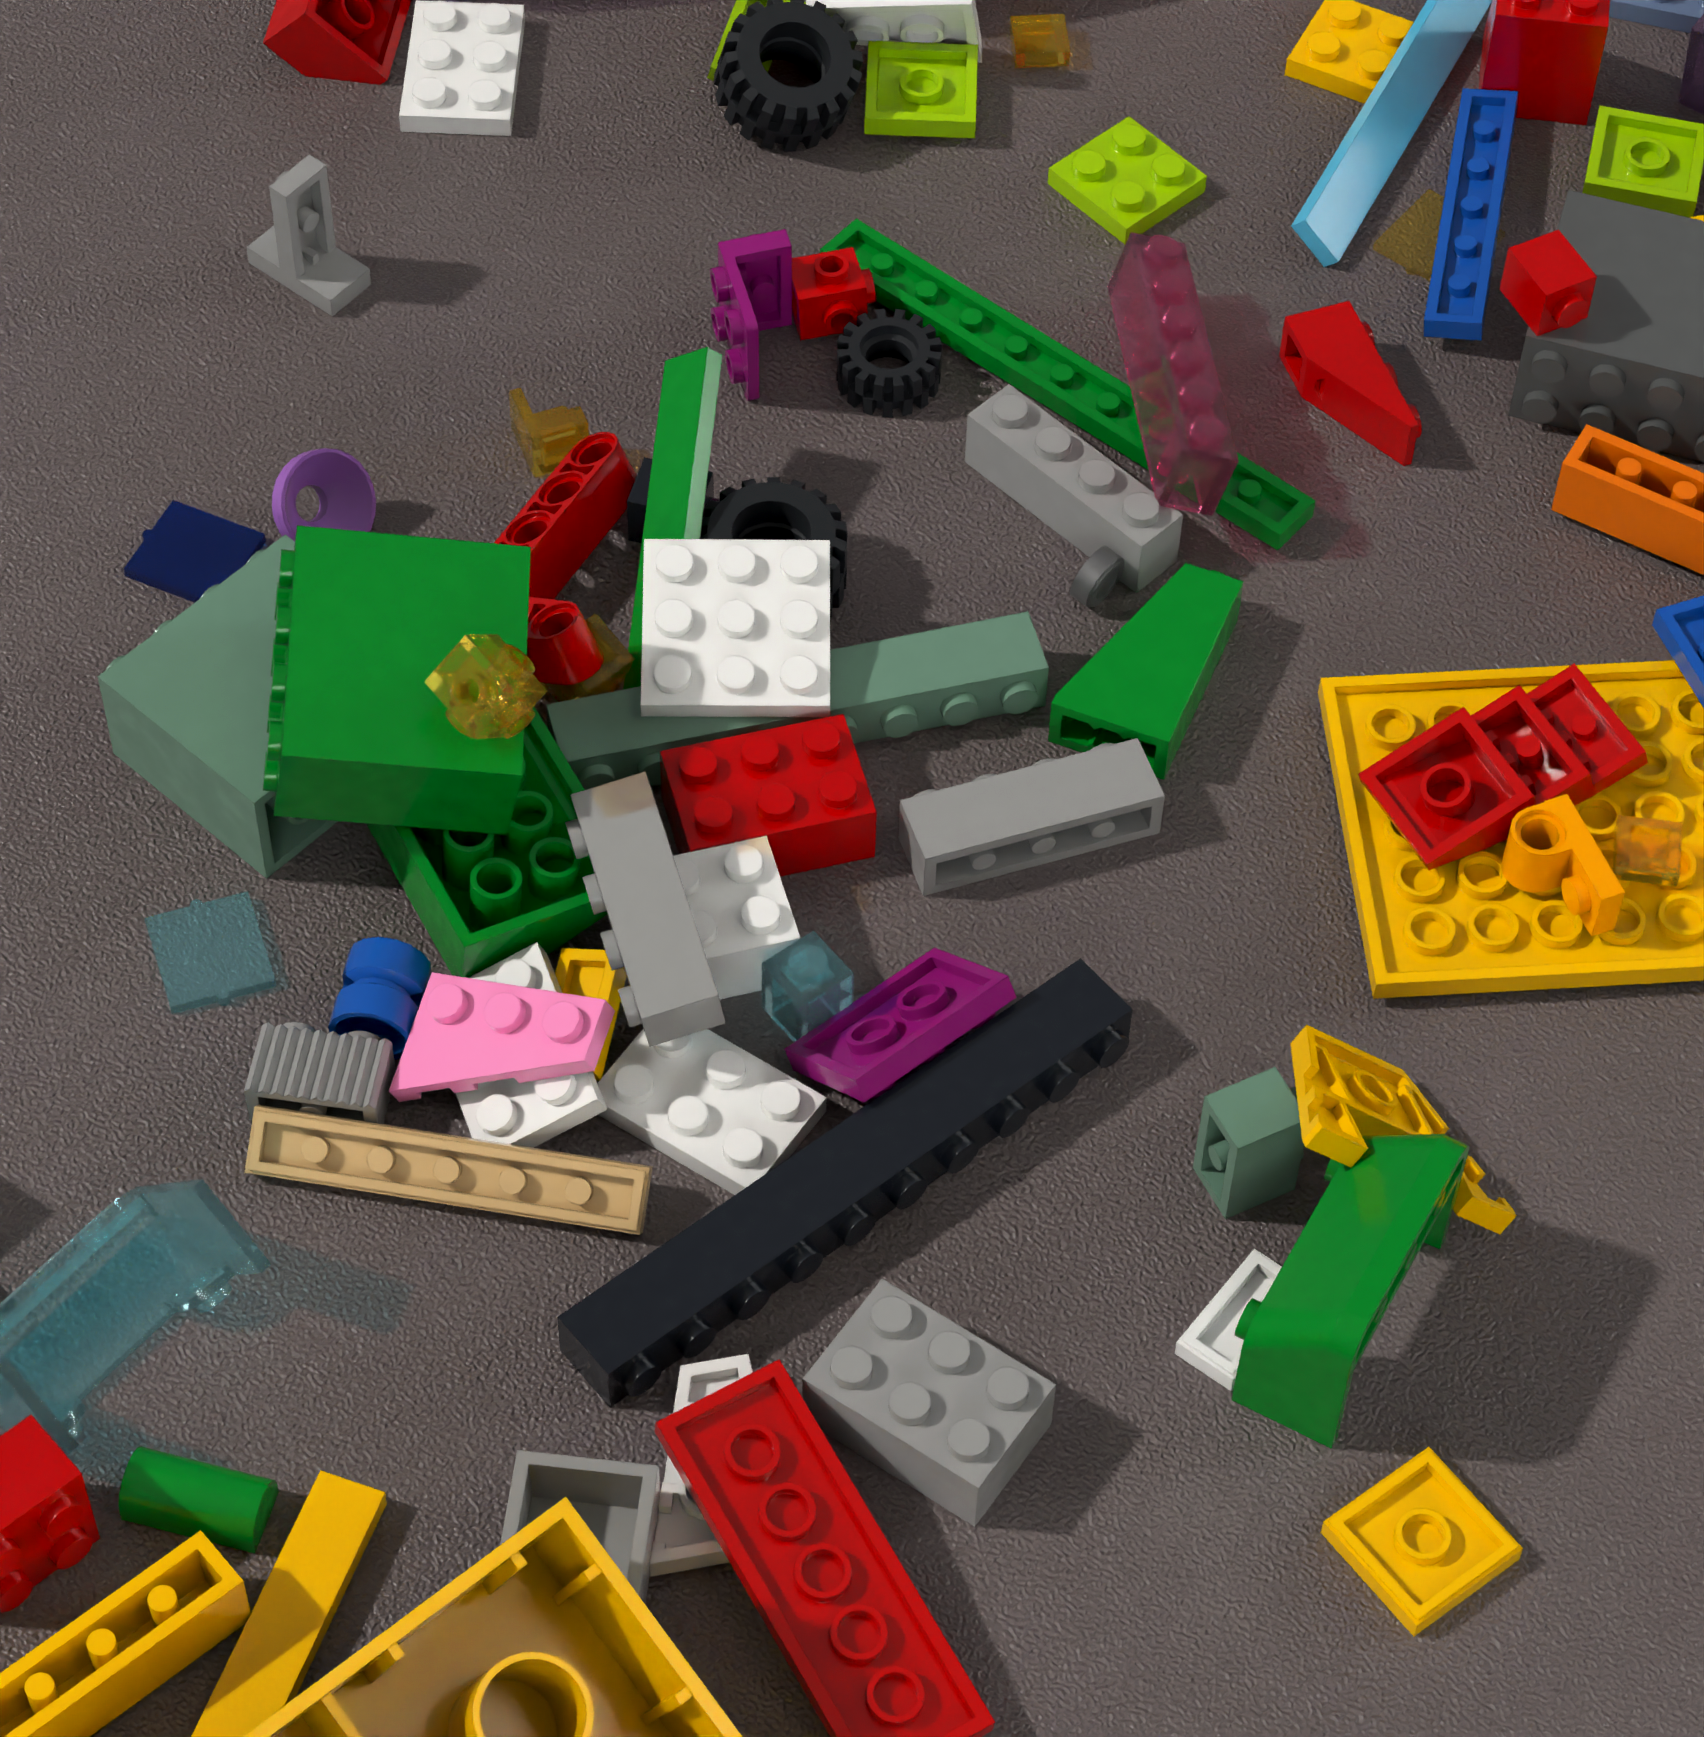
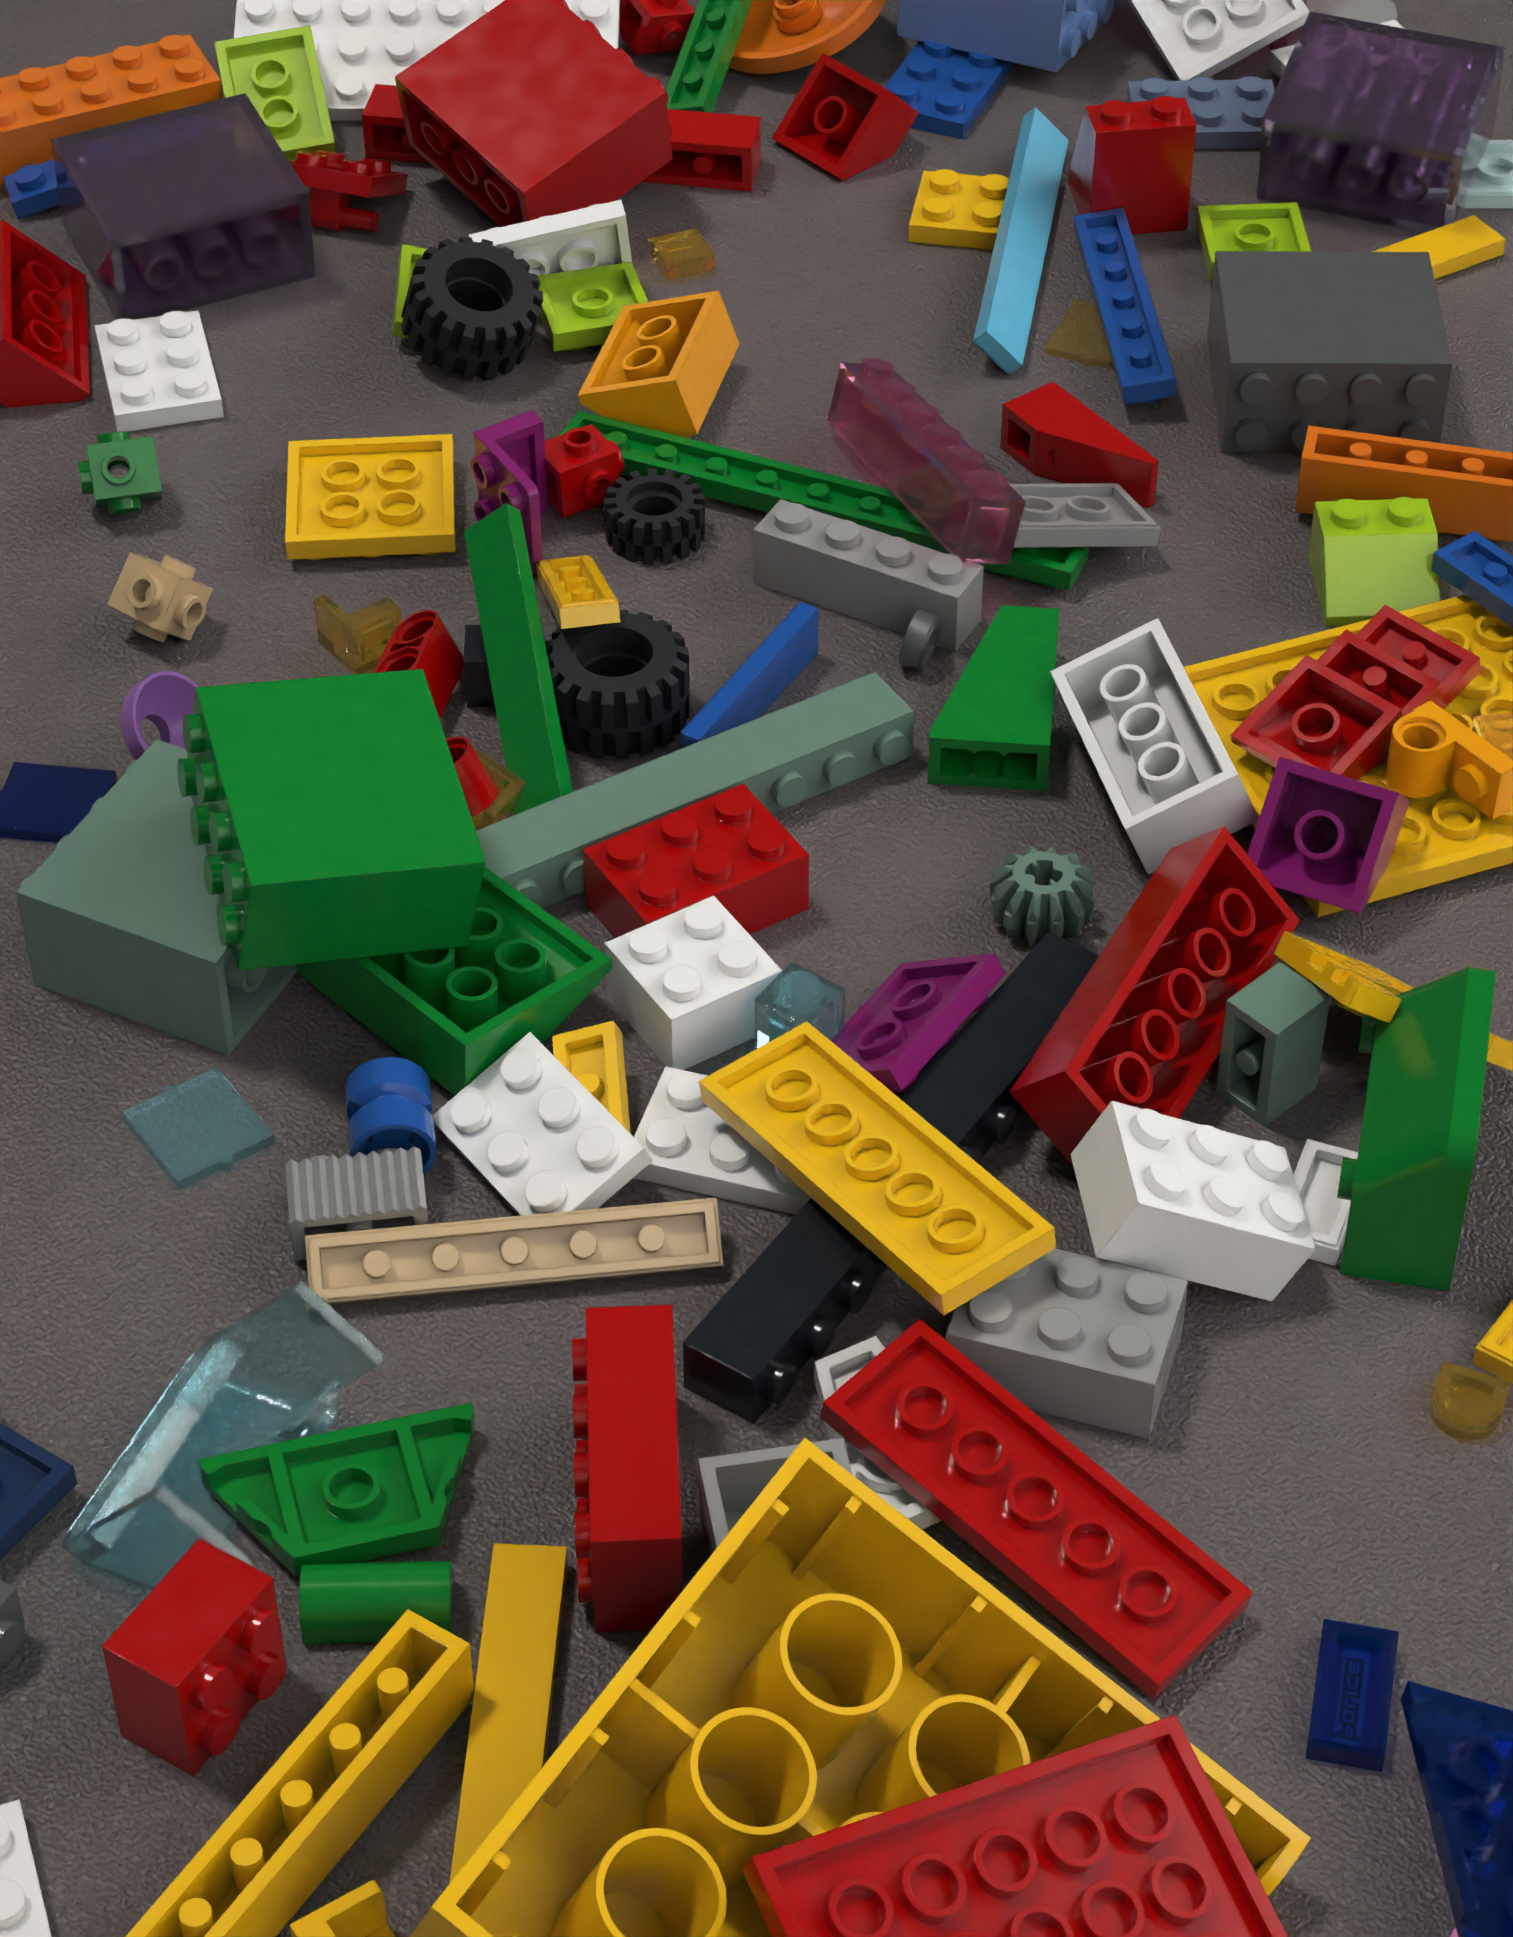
camera: 15 degrees left, 10 degrees down
(212, 1379) = (348, 1489): none -> green wing
(302, 244) = (64, 532): light grey bracket -> none
(366, 348) = (160, 596): none -> tan brick
(398, 191) = (120, 451): none -> green brick
(461, 1432) = (627, 1467): none -> red brick
(487, 687) = (434, 782): clear yellow brick -> none
(497, 1031) = (517, 1113): bright pink wing -> none
(616, 272) = (370, 497): none -> yellow plate
(646, 908) = (633, 971): light grey brick -> none
(736, 628) = (616, 733): white plate -> none
(766, 446) = (577, 592): none -> yellow tile
(801, 1184) = (878, 1167): none -> yellow plate
(919, 584) = (760, 677): none -> blue tile
(959, 184) = (663, 363): none -> light orange slope
(1030, 816) = (943, 838): light grey brick -> none
(1094, 1300) = (1191, 1201): none -> white brick
(1101, 907) = (1042, 894): none -> sand green gear
(1127, 179) = (806, 341): lime plate -> none
(1137, 1076) = (1158, 992): none -> red brick
(1272, 769) = (1153, 743): none -> white brick
(1294, 1576) = (1468, 1402): none -> clear yellow tile
(1308, 466) = (1082, 517): none -> light grey tile
(1400, 919) = (1326, 834): none -> magenta slope
(1548, 283) = (1237, 313): red brick -> none
(1602, 594) = (1372, 557): none -> lime slope

